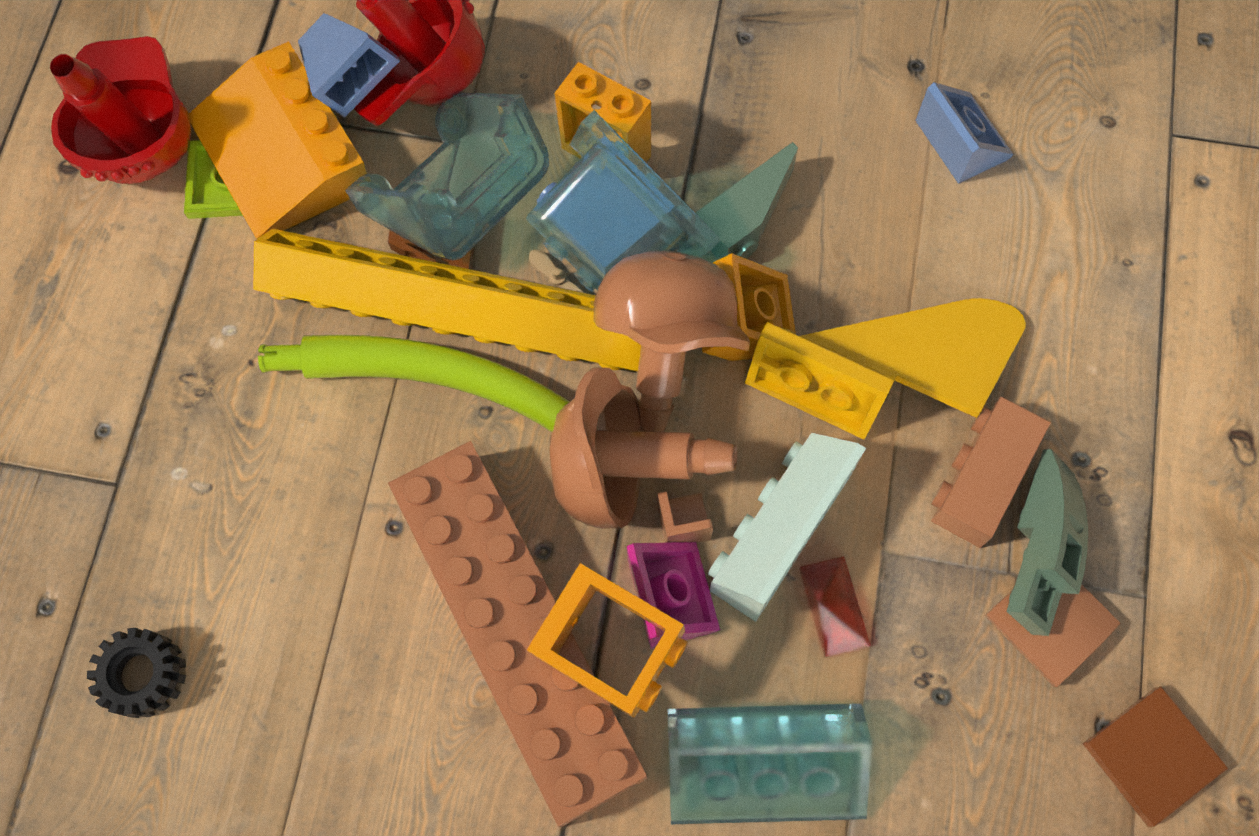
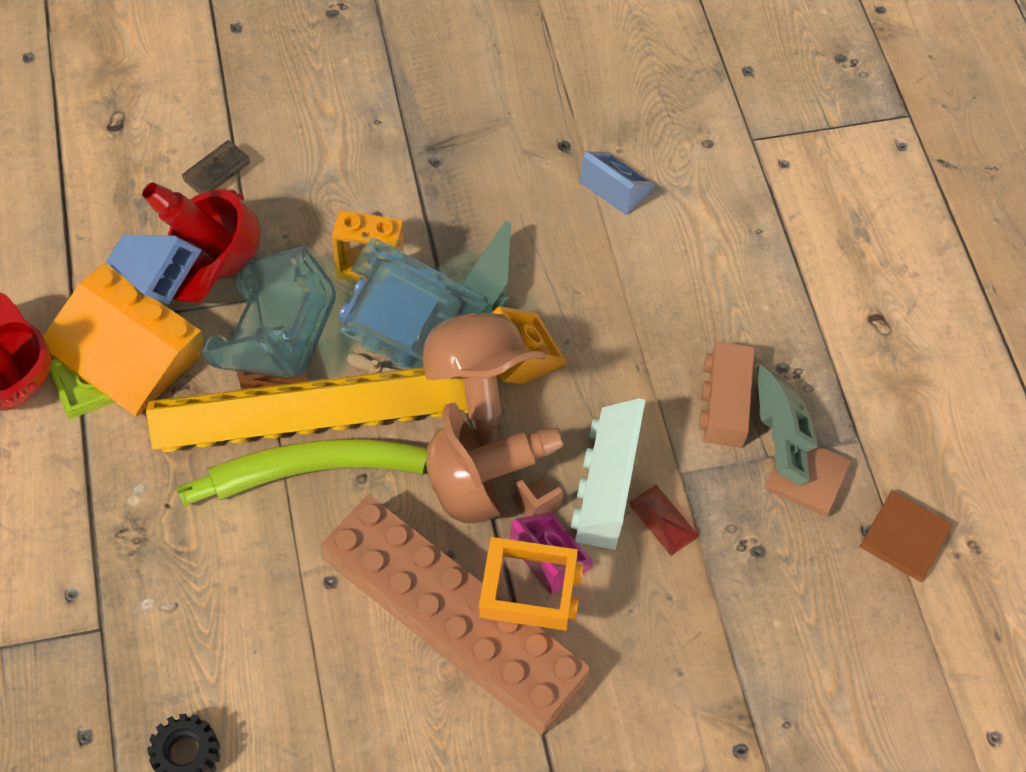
camera: 30 degrees left, 10 degrees down
(768, 763) = (664, 635): clear light blue slope -> none
(848, 370) = (612, 358): yellow piece -> none

